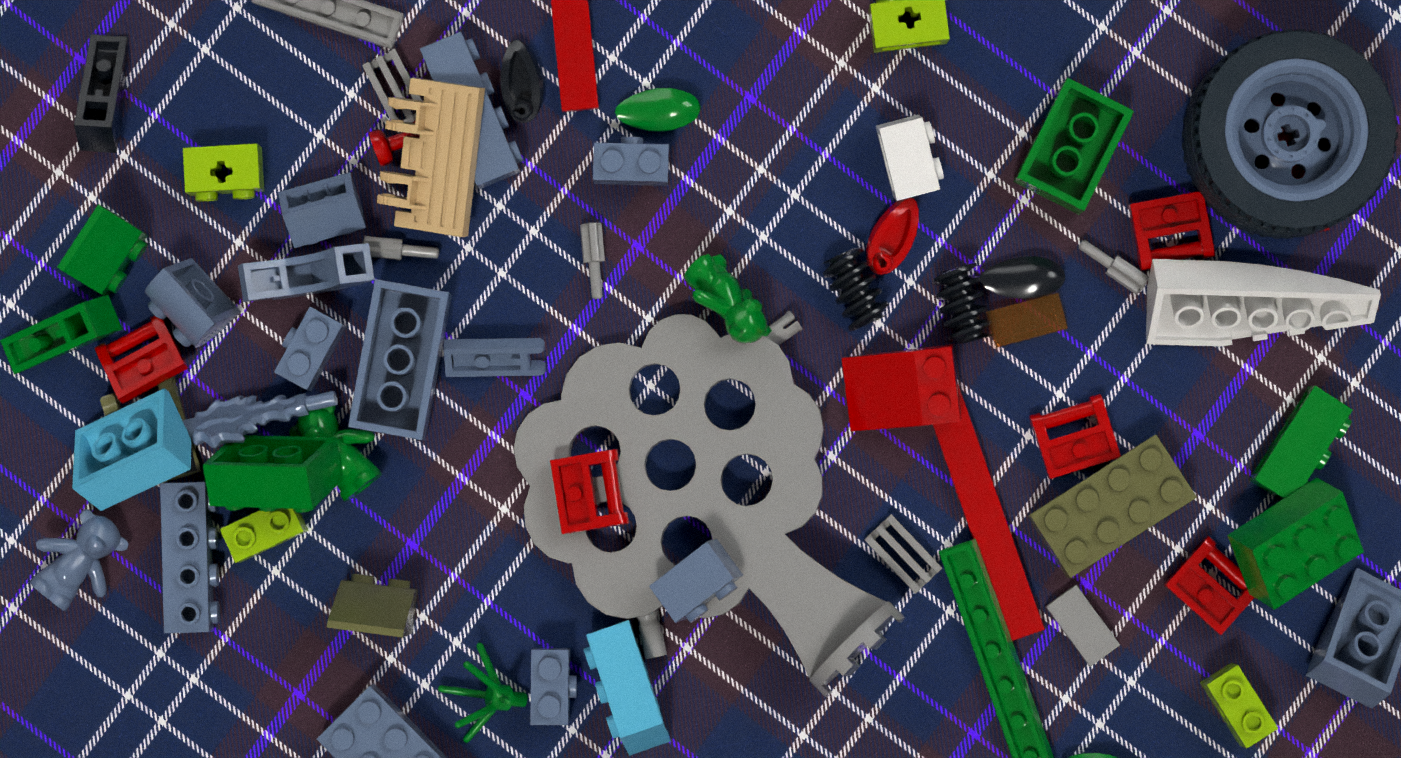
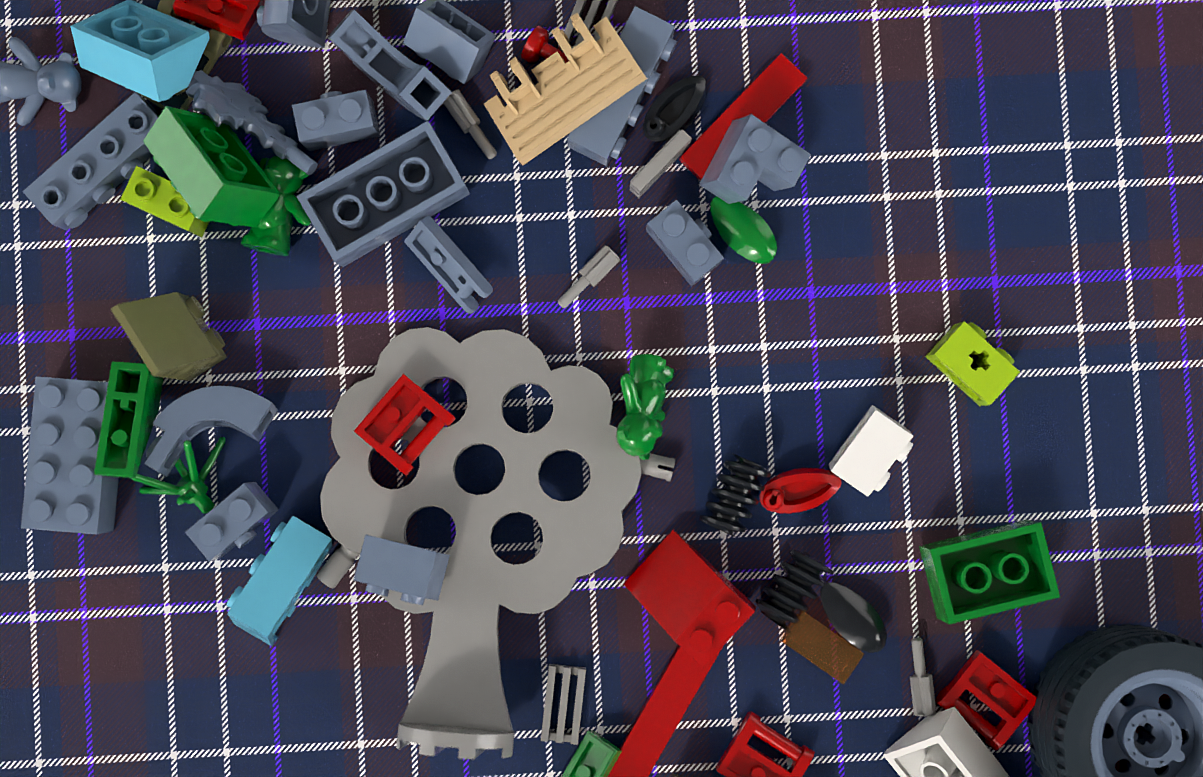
camera: 45 degrees right, 0 degrees up
(407, 696) = (127, 419): none -> green slope
(449, 630) = (204, 410): none -> sand blue arch
(553, 130) = (660, 163): none -> light grey tile
(606, 58) = (753, 154): none -> sand blue brick

